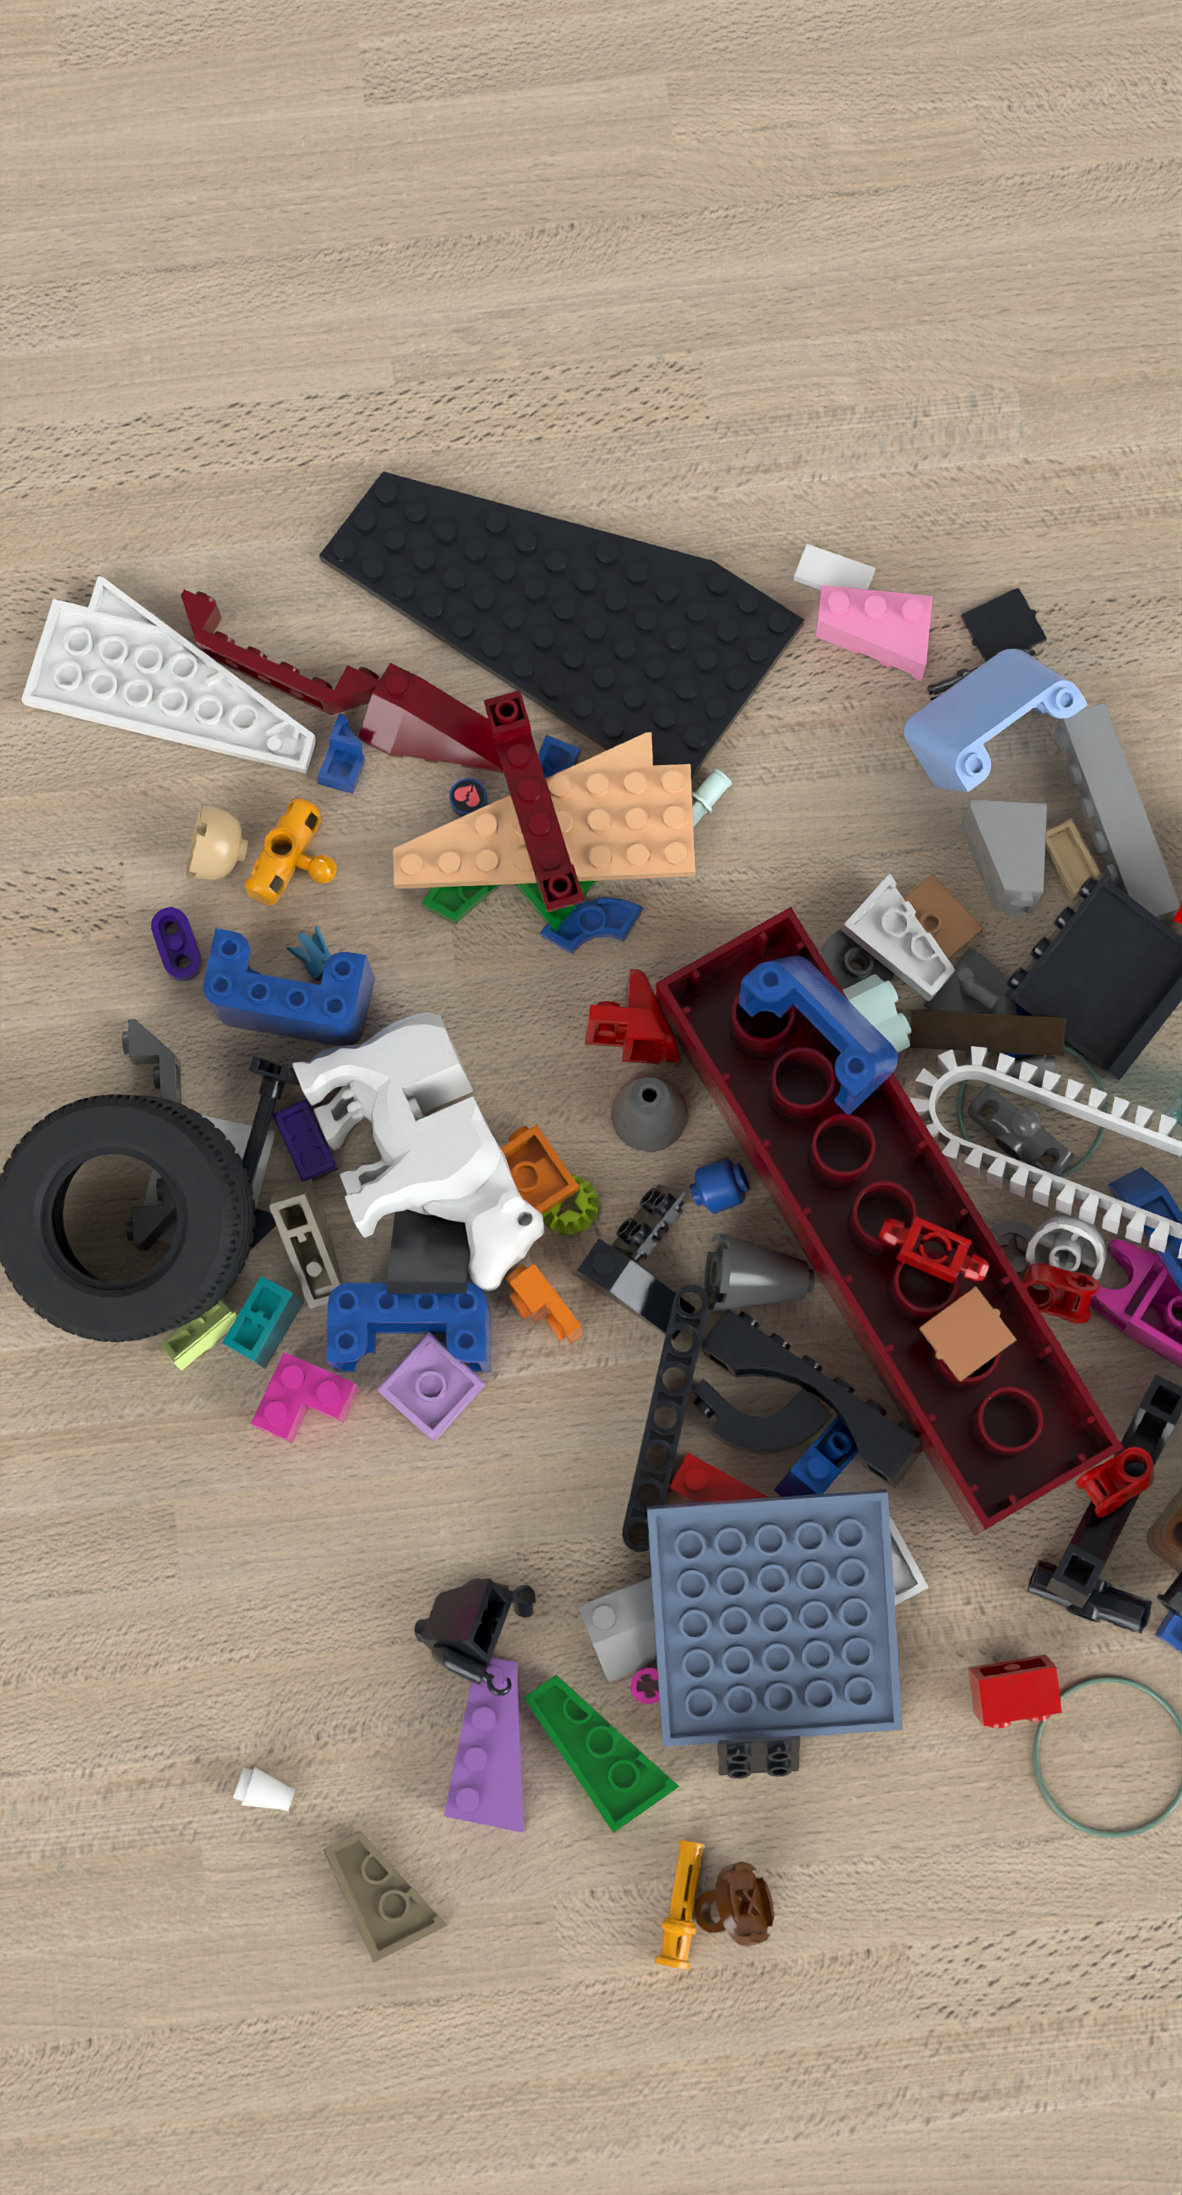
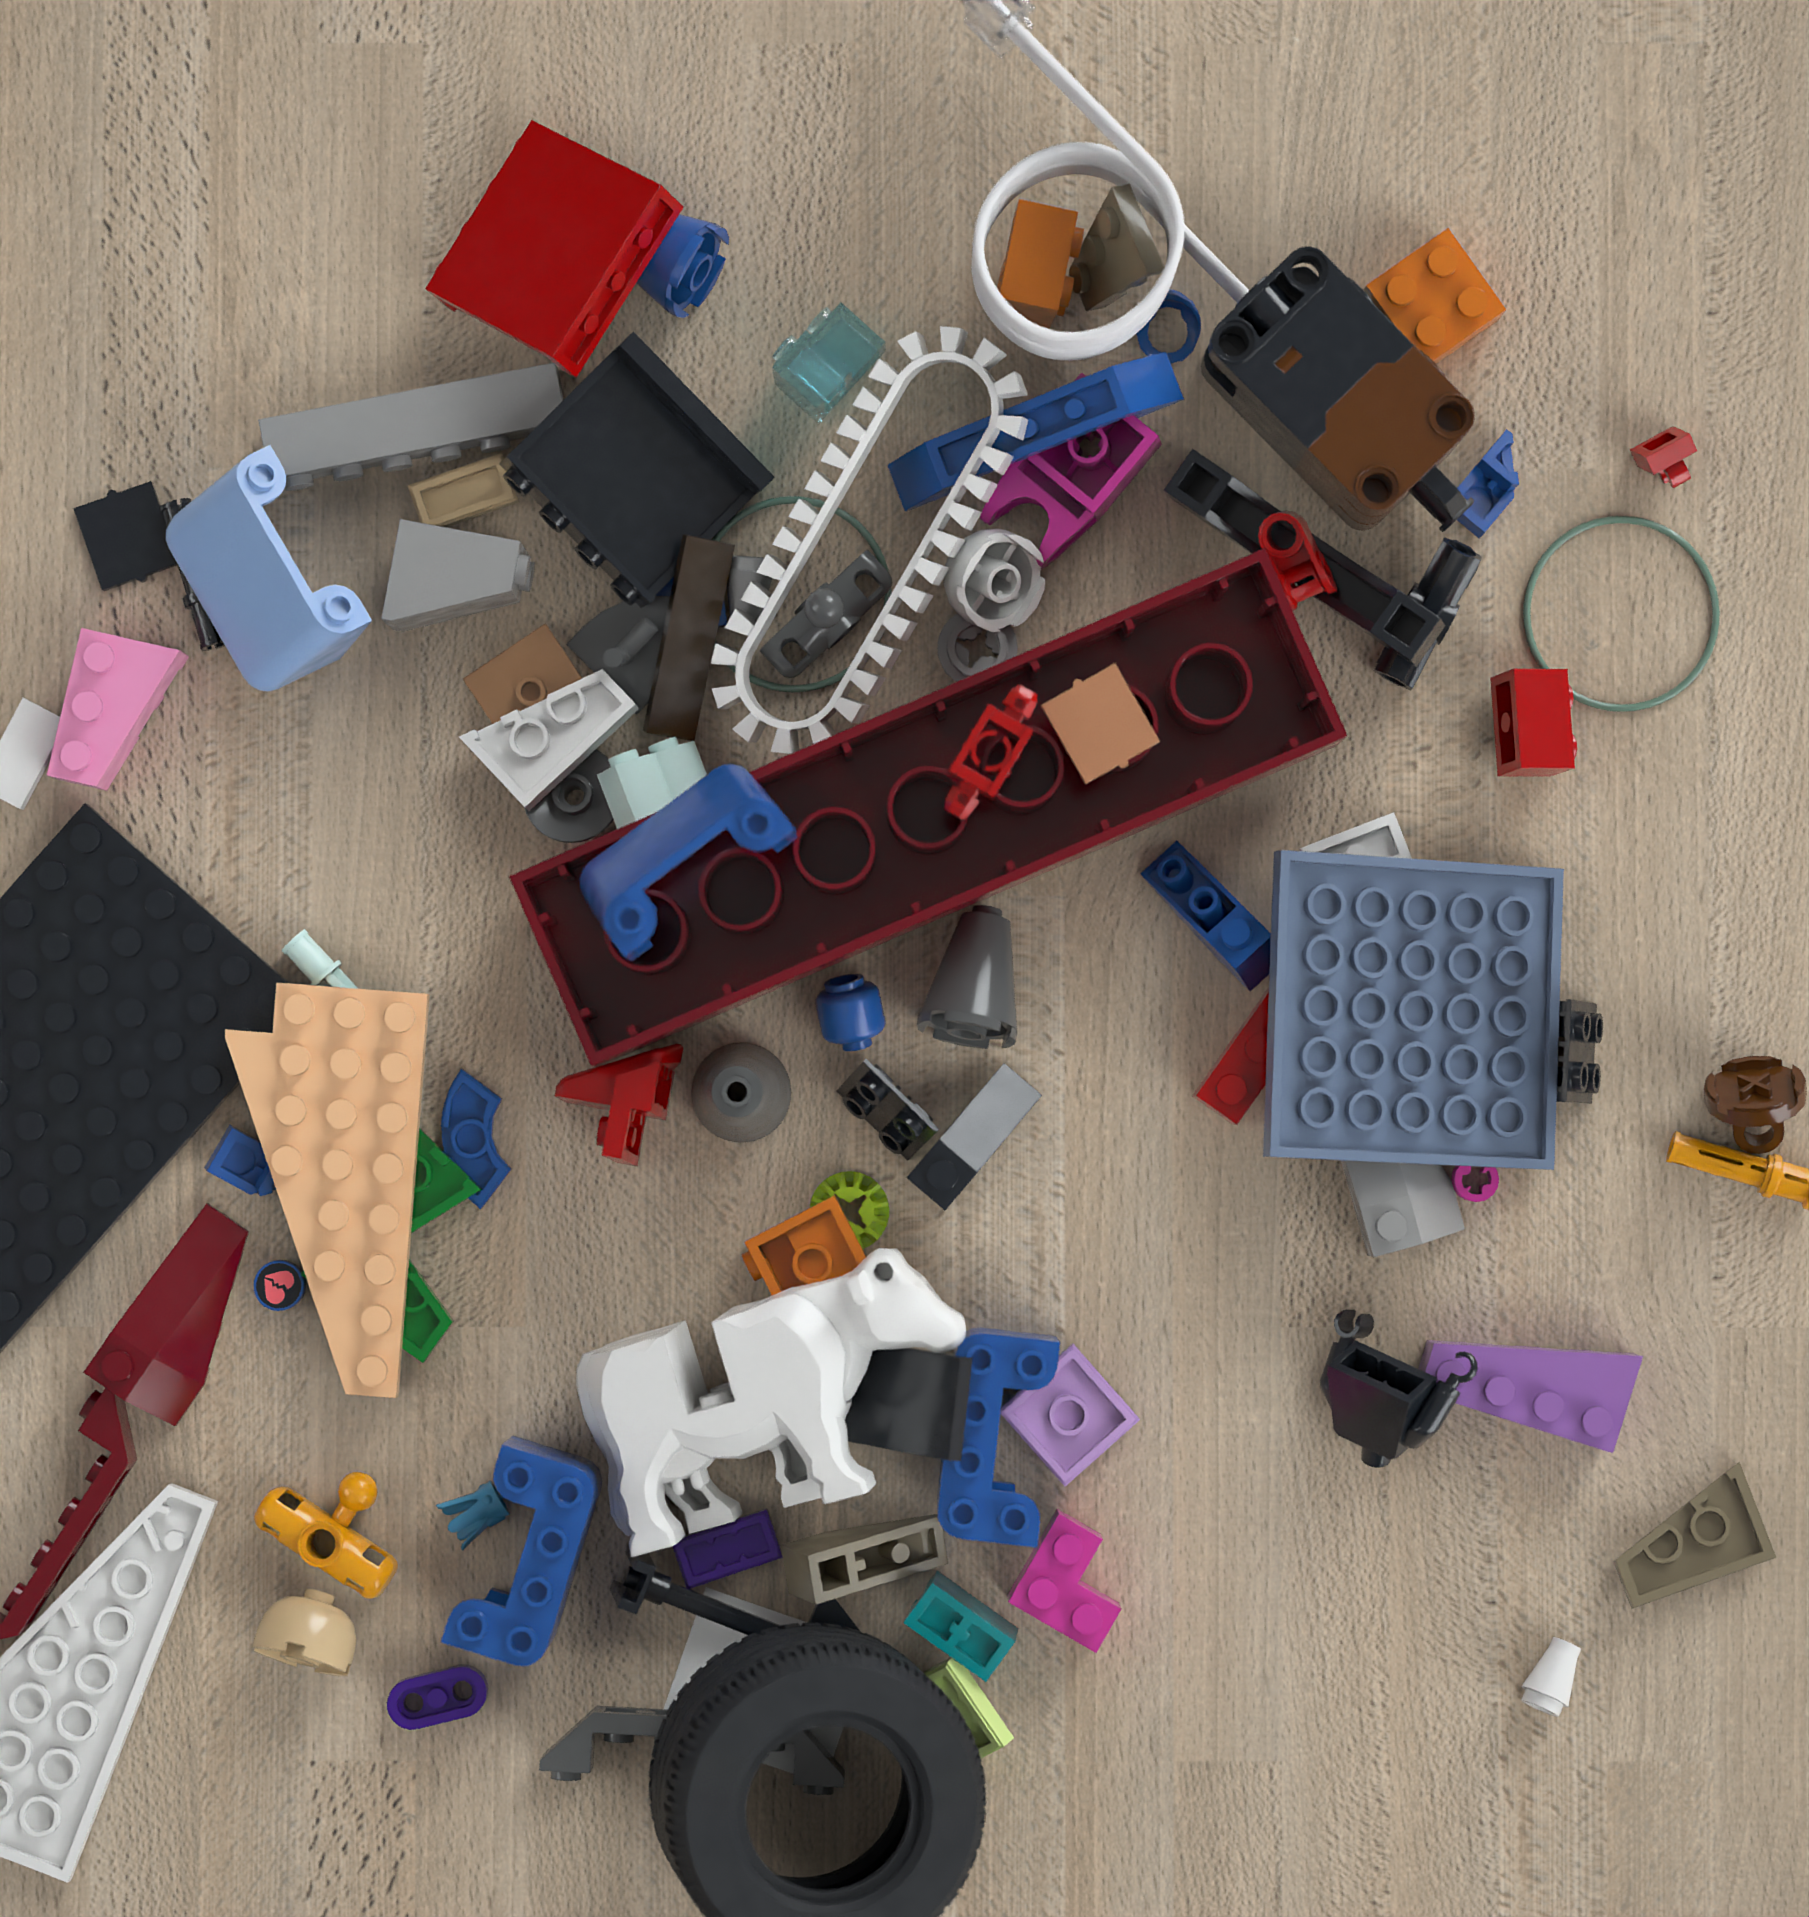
camera: 90 degrees left, 10 degrees up
(343, 759) = (203, 1449): blue slope -> none
(532, 801) = (313, 1199): dark red slope -> none
(536, 1298) = (971, 1268): orange plate -> none
(604, 1761) = (1560, 1246): green wing -> none
(661, 1397) = (1120, 1114): black beam -> none
(747, 1352) = (1072, 1002): black arch -> none
(764, 1434) = (1179, 994): black arch -> none
(1061, 1292) = (1044, 600): red piece -> none

